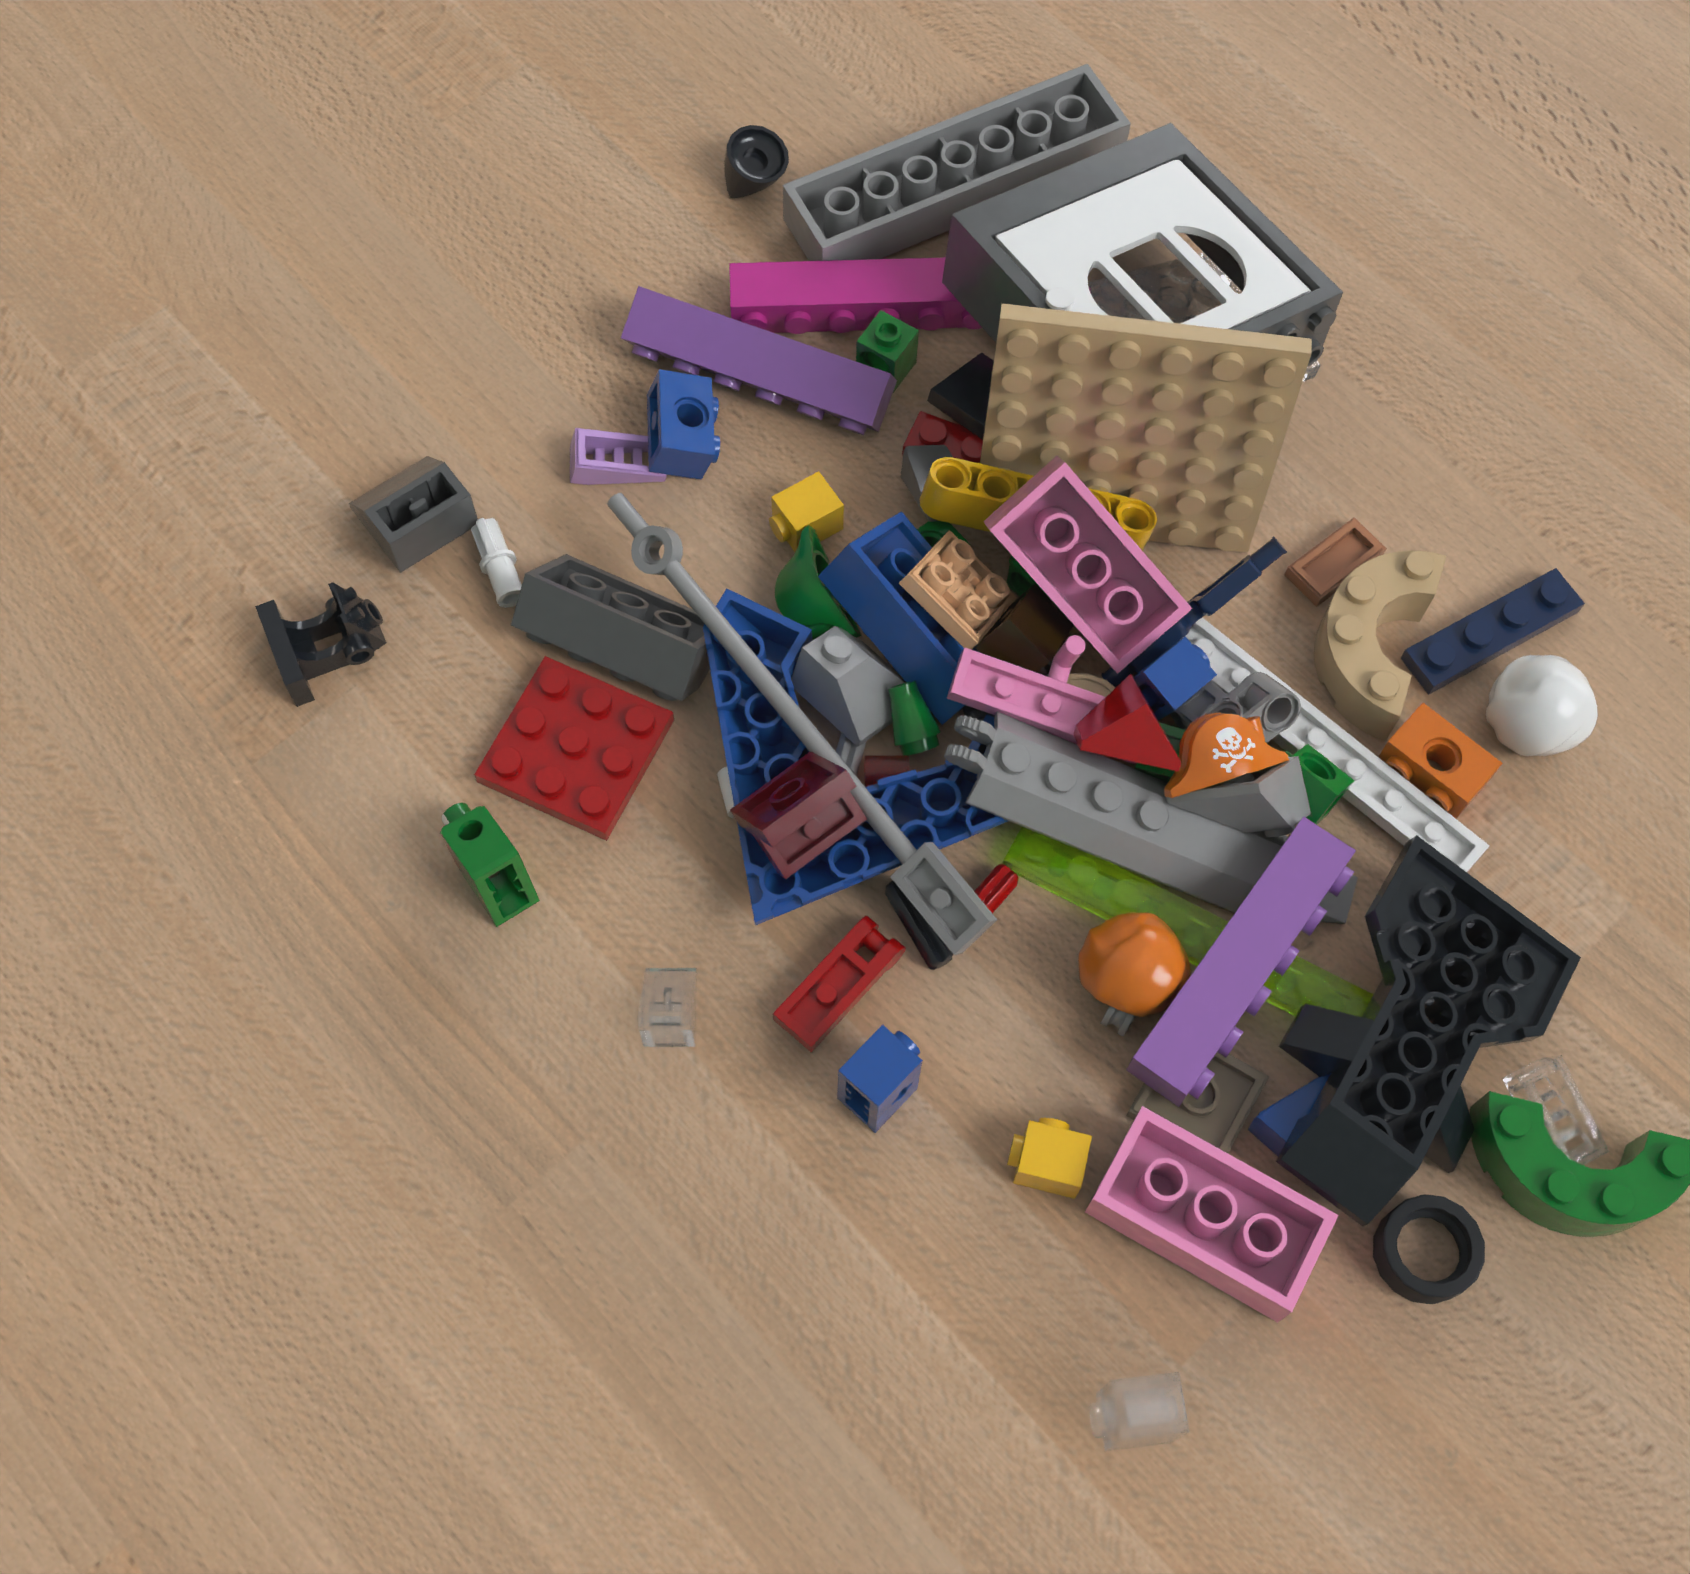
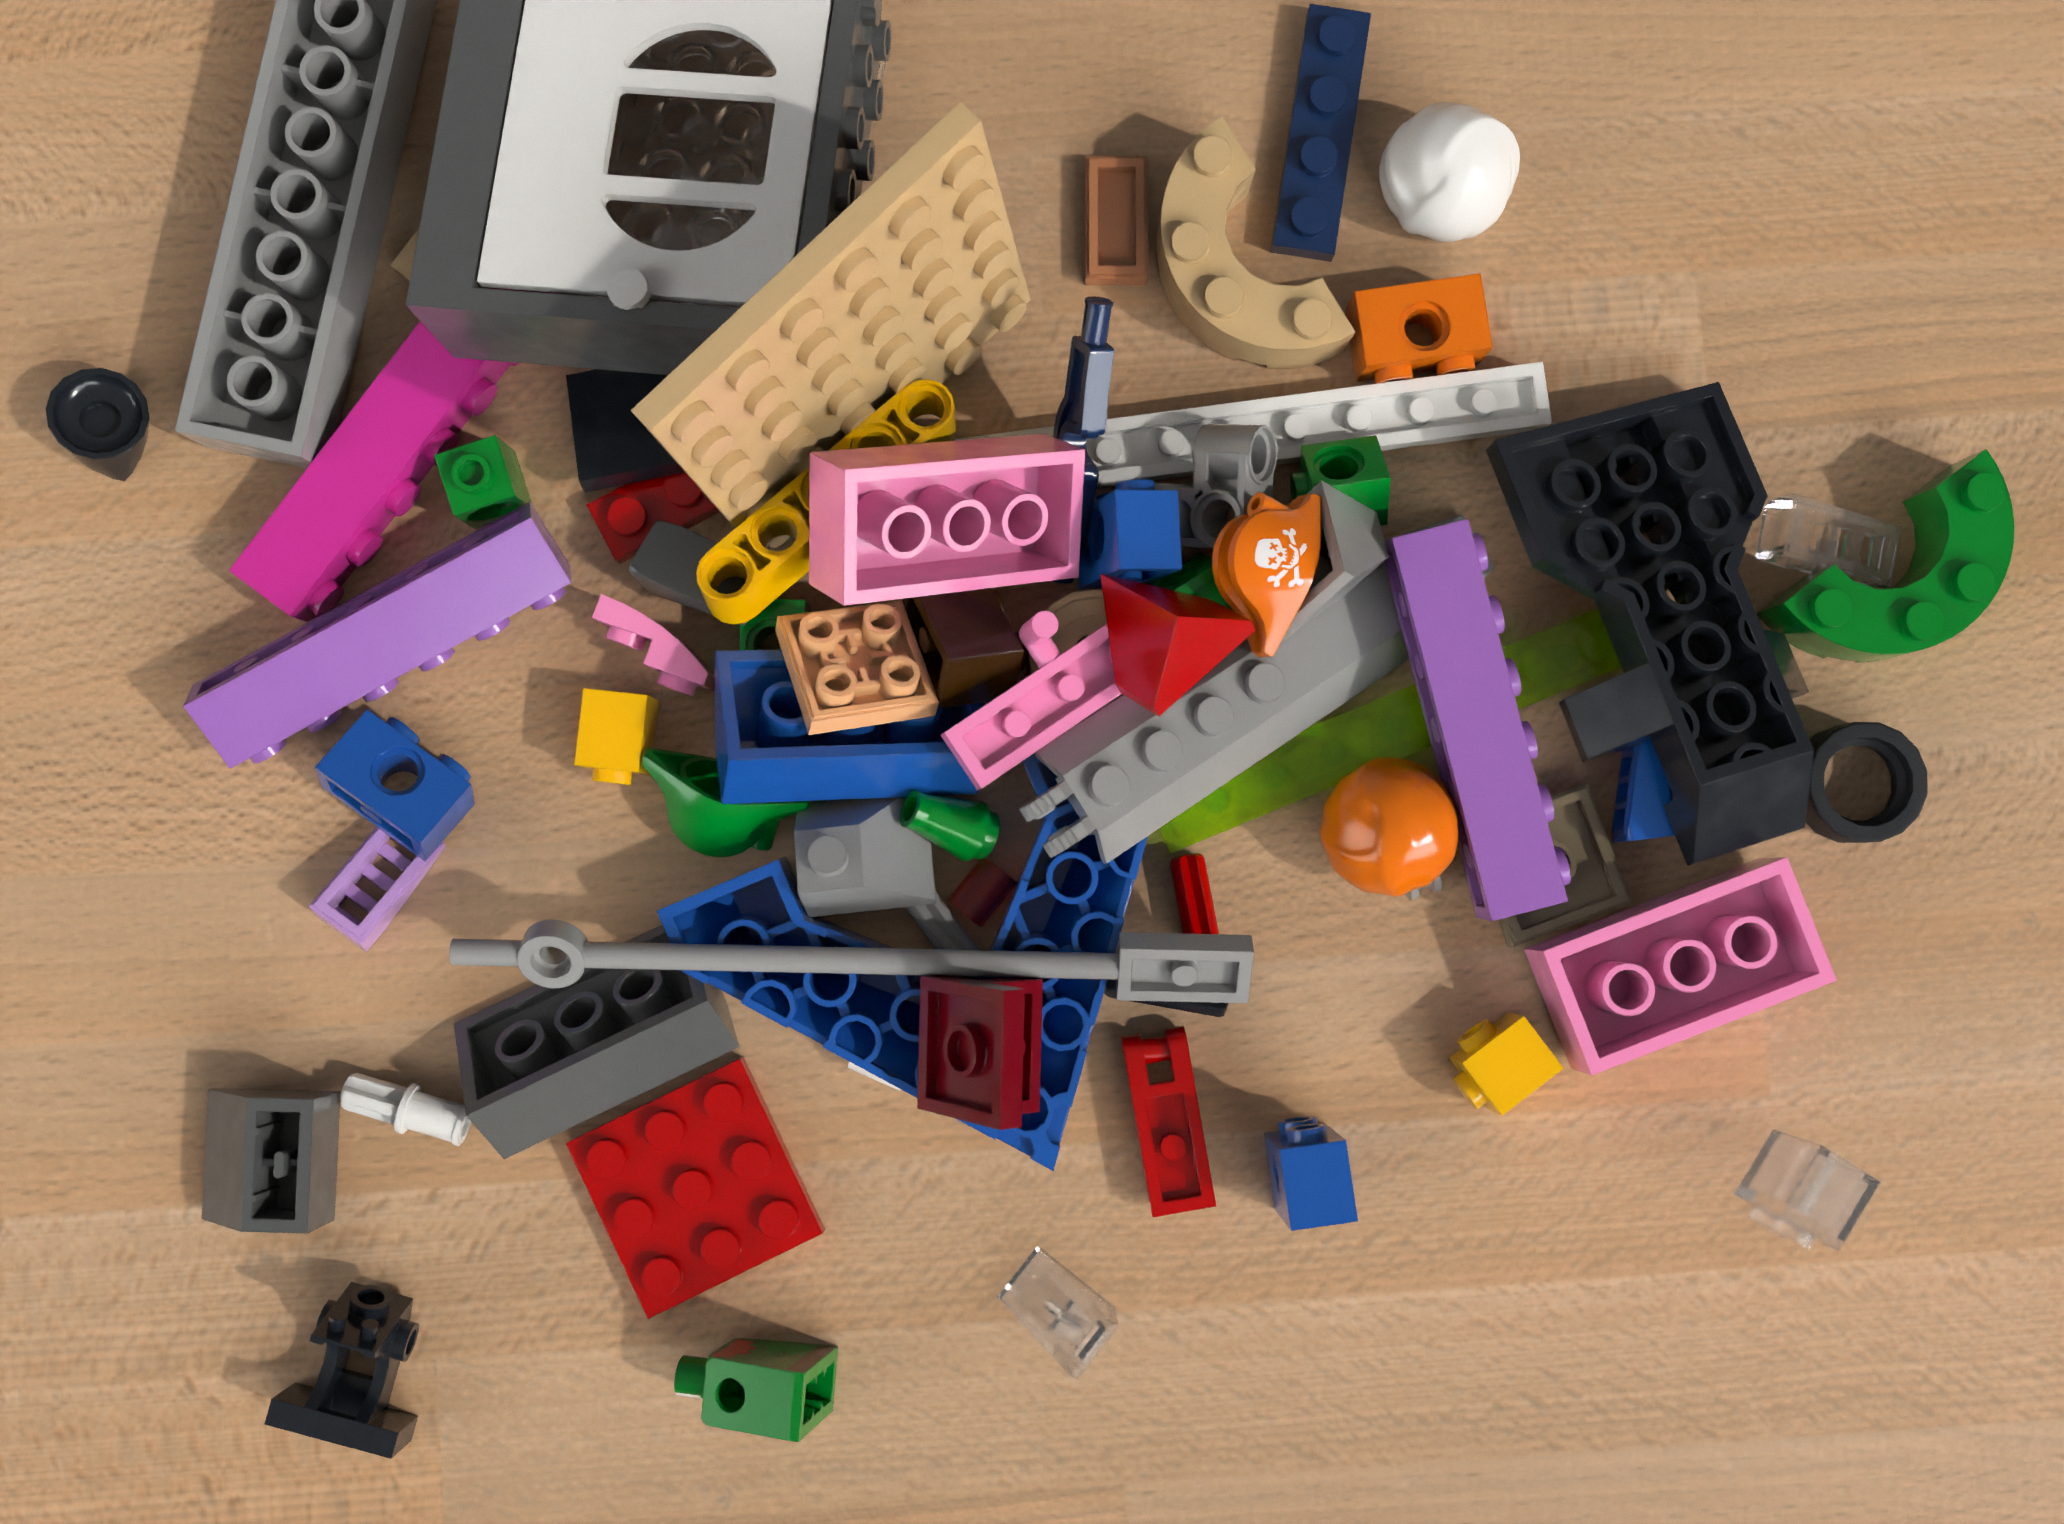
camera: 50 degrees left, 20 degrees up
(874, 490) = (676, 662): none -> bright pink slope

